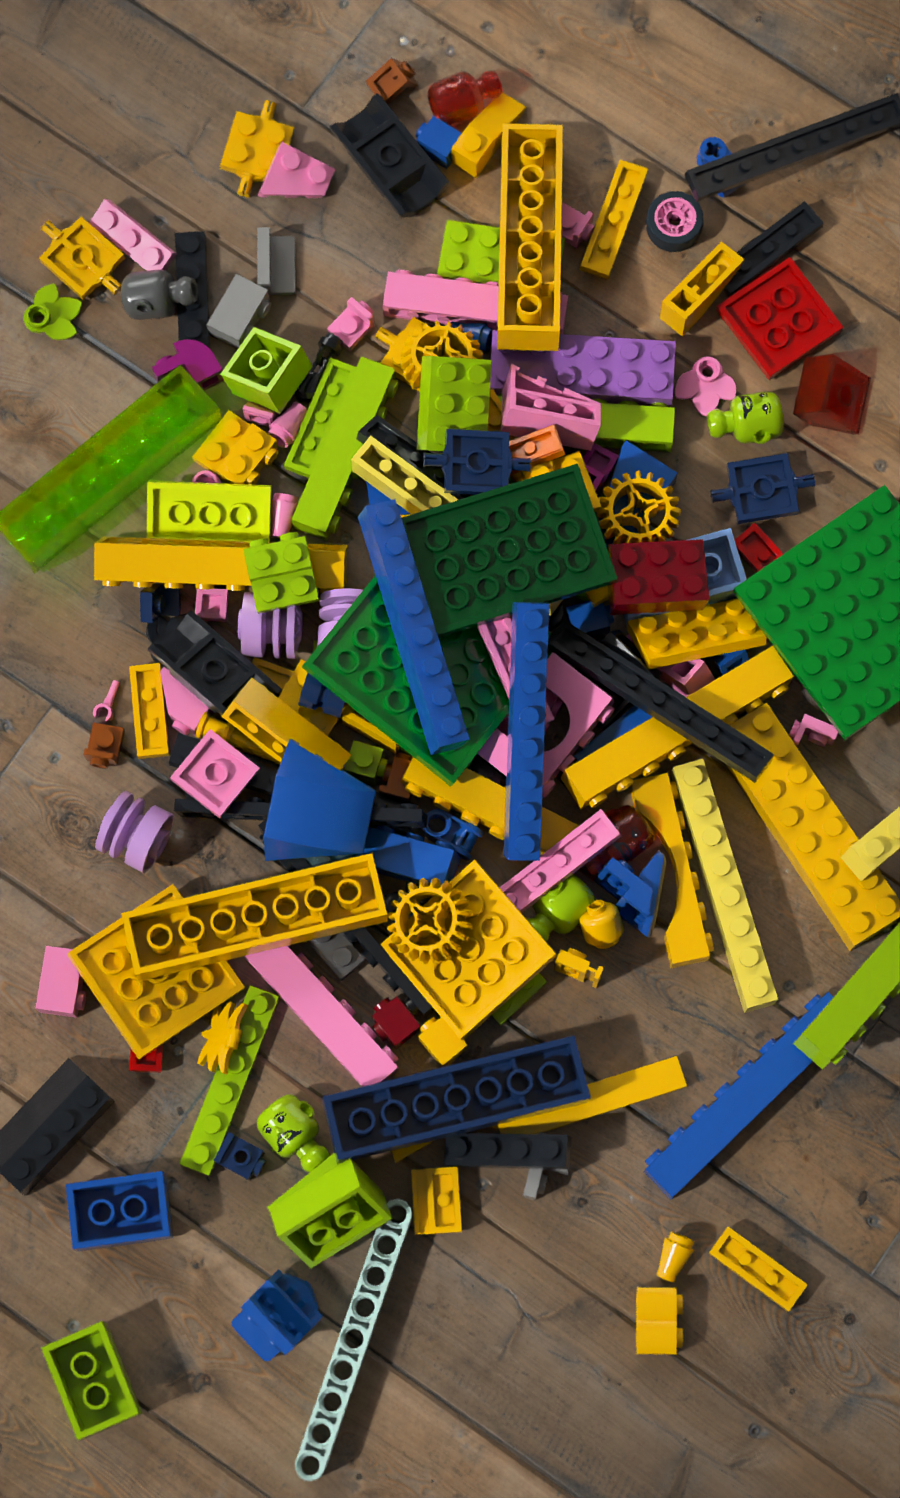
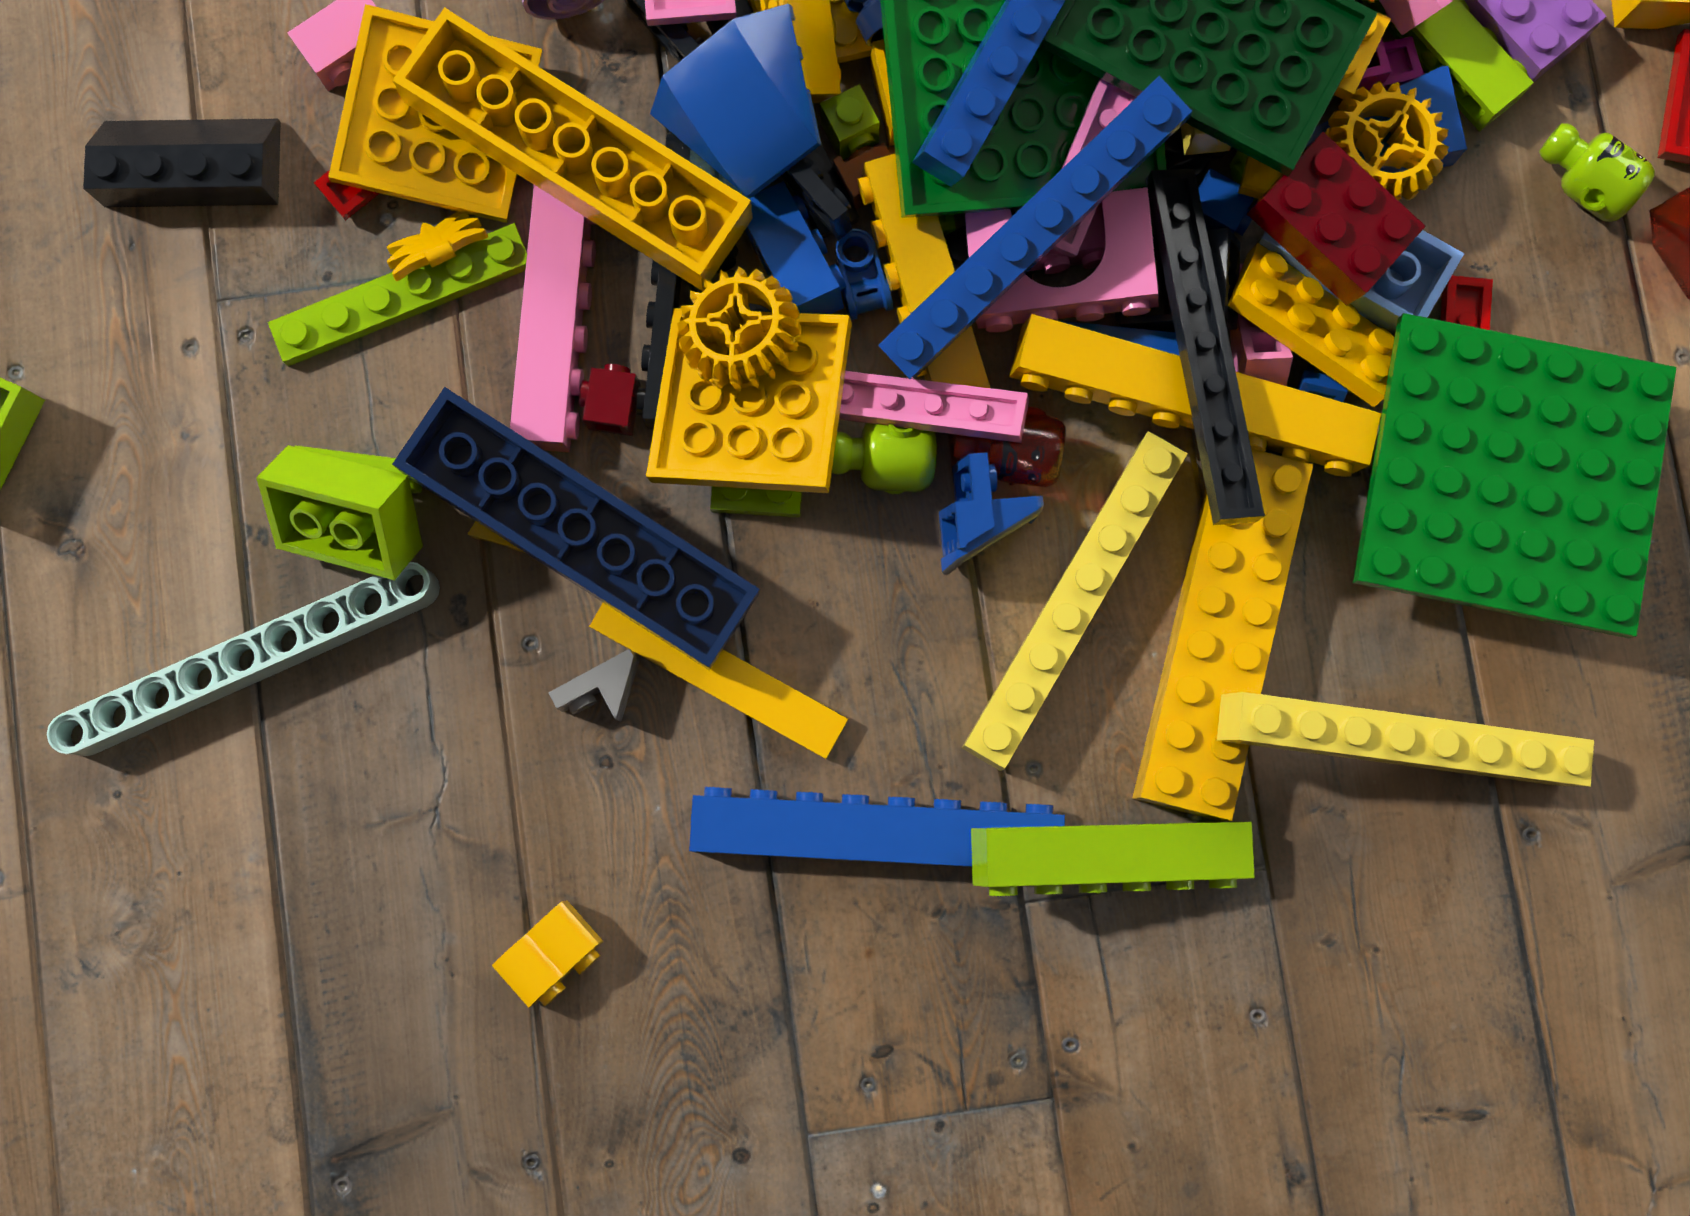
camera: 45 degrees right, 5 degrees up
(119, 1211) = (159, 305): blue brick -> none
(227, 1154) = (327, 356): dark blue brick -> none
(277, 1315) = (202, 558): blue piece -> none
(291, 1130) = (398, 396): lime piece -> none
(337, 954) = (628, 280): flat silver plate -> none
(436, 1201) = (465, 612): yellow plate -> none
(441, 1041) = (629, 464): yellow brick -> none
(508, 1151) = (581, 637): black plate -> none
(575, 966) = (841, 526): yellow plate -> none
(601, 924) = (911, 513): yellow head -> none
(674, 1255) = (636, 909): yellow cone -> none
(685, 936) = (1088, 456): yellow arch -> none
(705, 390) = (1581, 100): bright pink plate -> none
(758, 1269) = (701, 1011): yellow plate -> none
(762, 488) = (1537, 255): dark blue plate -> none
(817, 730) = (1334, 547): bright pink bracket -> none

